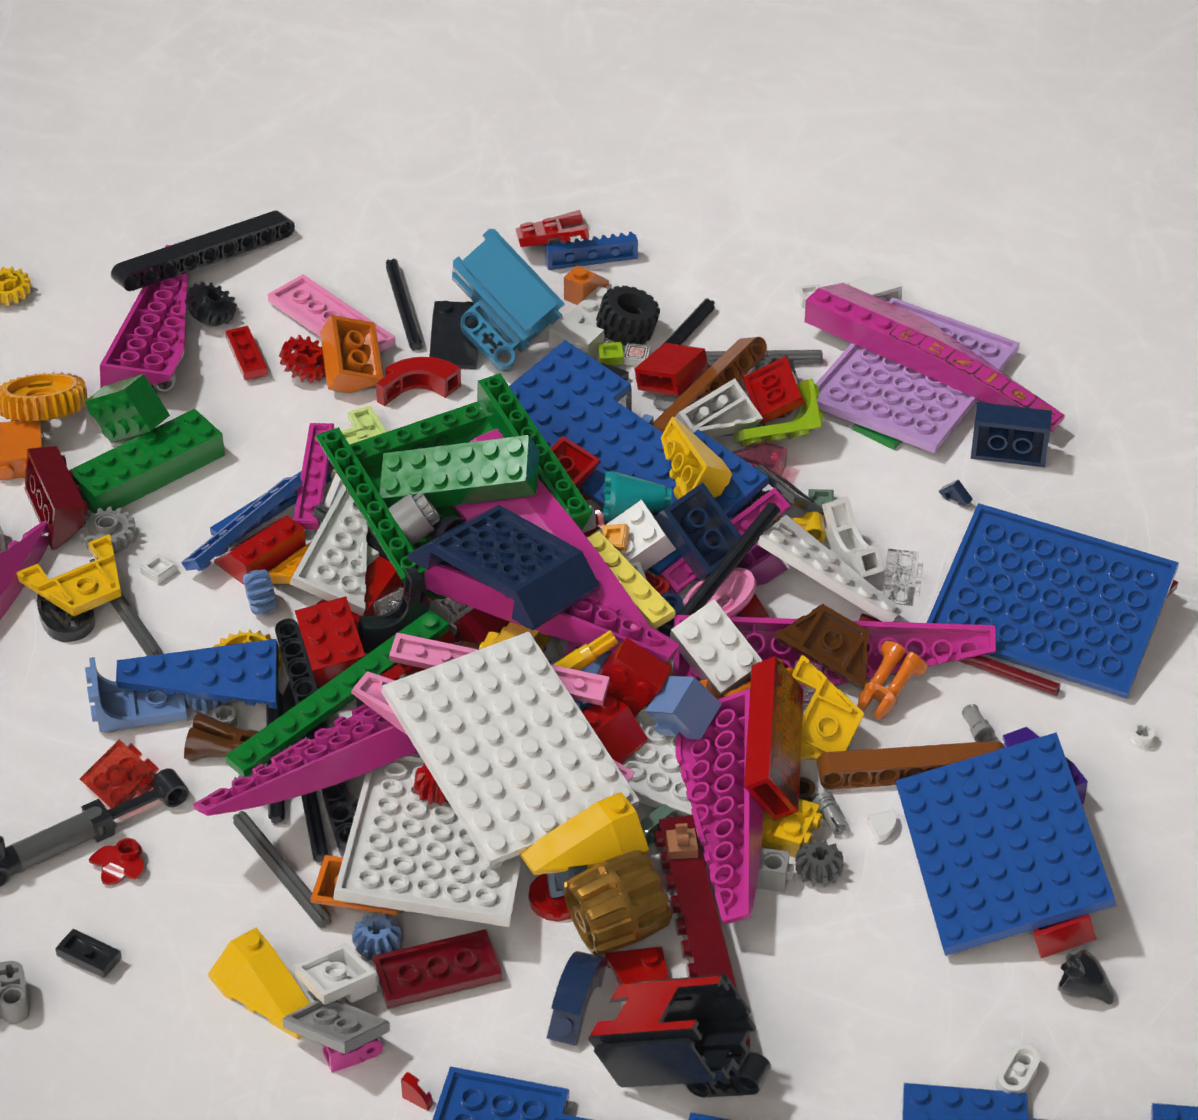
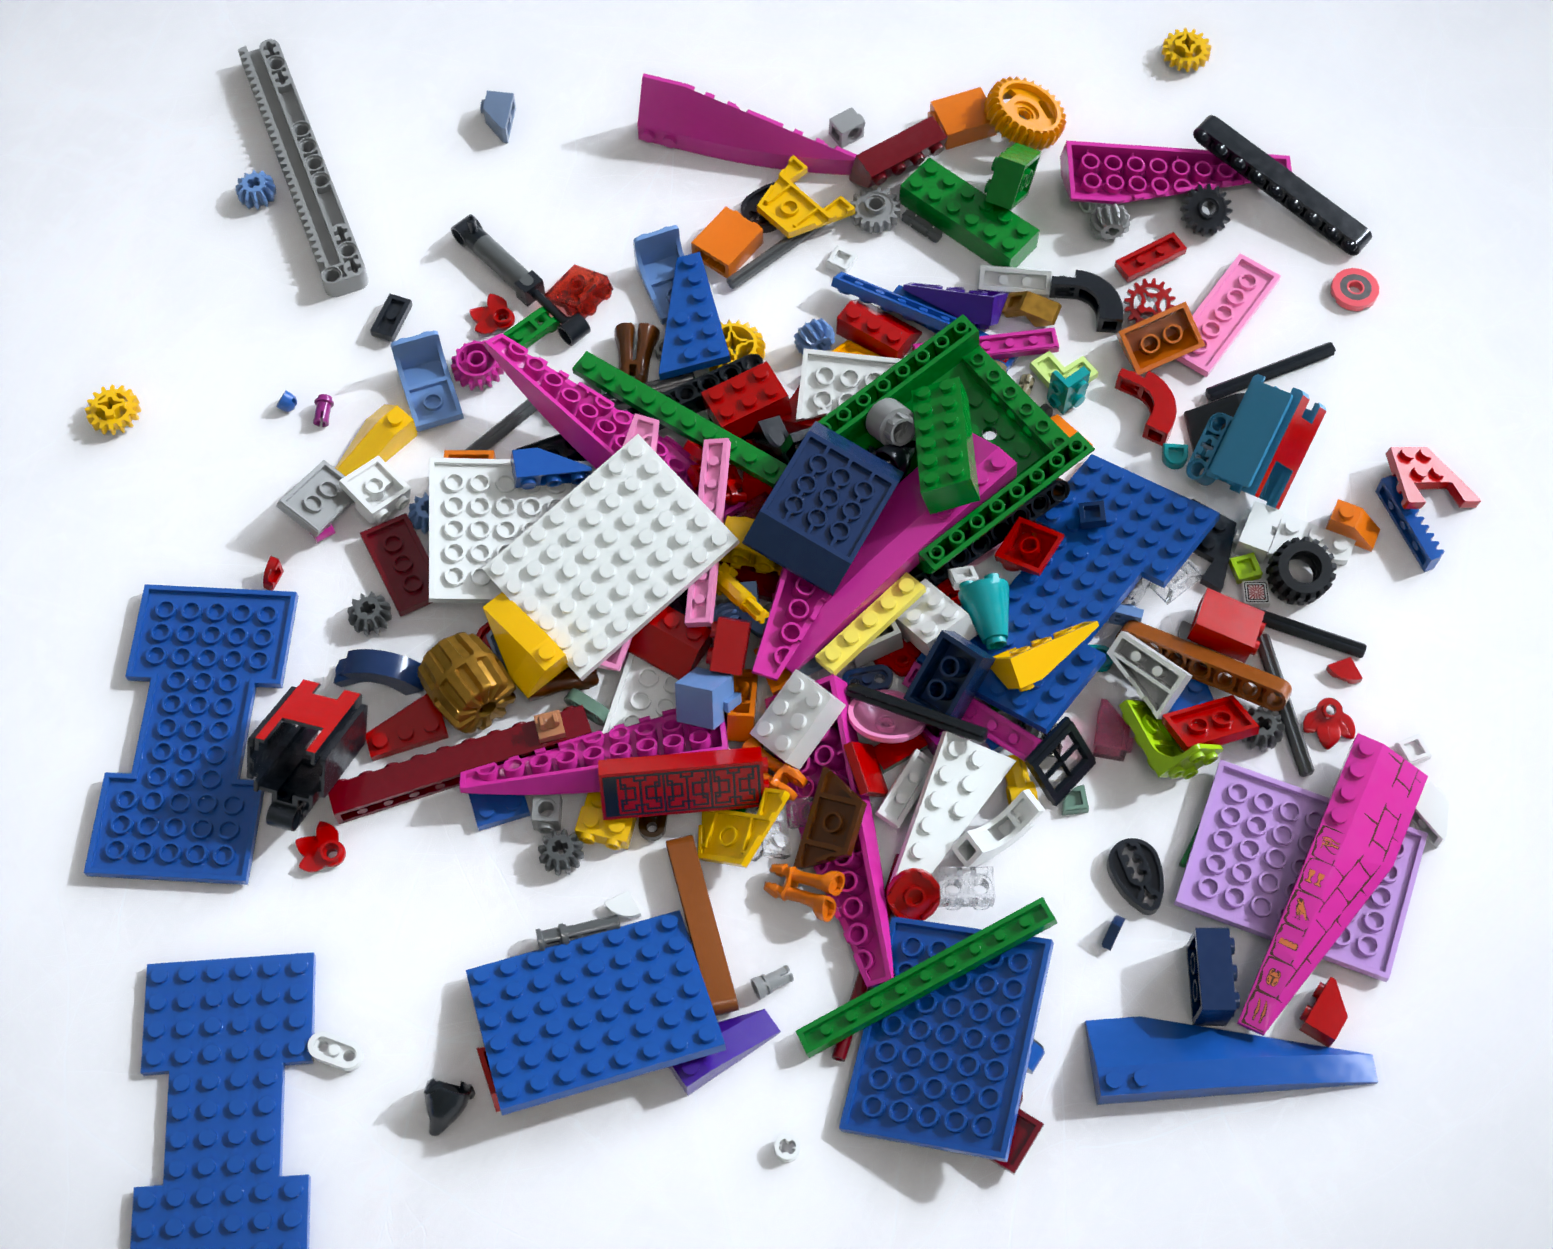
camera: 80 degrees right, 20 degrees up
(103, 639) = (728, 242): none -> orange brick
(142, 501) = (922, 226): none -> dark grey axle
(158, 833) = (529, 331): none -> green plate
(169, 1063) = (287, 402): none -> blue hinge
(188, 876) = (475, 366): none -> dark pink gear
(199, 365) = (1110, 222): none -> light grey gear
(199, 924) = (426, 380): none -> medium blue bracket
(199, 1029) = (323, 407): none -> magenta pin
(238, 444) = (1014, 279): none -> white plate
(254, 477) = (978, 306): none -> dark purple wedge
(275, 437) = (1036, 308): none -> pearl gold slope
(281, 391) = (1096, 293): none -> black arch
(340, 234) = (1354, 278): none -> coral tile
(373, 799) = (539, 468): none -> blue slope
(390, 413) = (1068, 392): none -> teal bracket
(471, 377) = (1174, 455): none -> teal tile
(495, 1001) = (361, 608): none -> dark grey gear
(543, 419) = (1092, 514): none -> dark blue plate
(617, 535) = (922, 604): light orange tile -> none
(726, 317) = (1345, 670): none -> red tile
(758, 926) = (495, 810): none -> blue plate
(776, 334) = (1329, 727): none -> red plate
(784, 1074) = (318, 847): none -> red plate
(785, 598) = (904, 789): none -> white plate
(789, 611) = (865, 769): none -> red tile
(830, 812) = (628, 856): light grey pin -> none
(905, 606) = (913, 894): none -> red tile
(907, 470) = (1149, 866): none -> black piece
(910, 868) = (564, 934): none -> dark grey pin
(999, 601) = (926, 977): none -> green plate
(1046, 382) = (1327, 1014): none -> red slope
(1079, 472) = (1174, 1060): none -> blue wedge

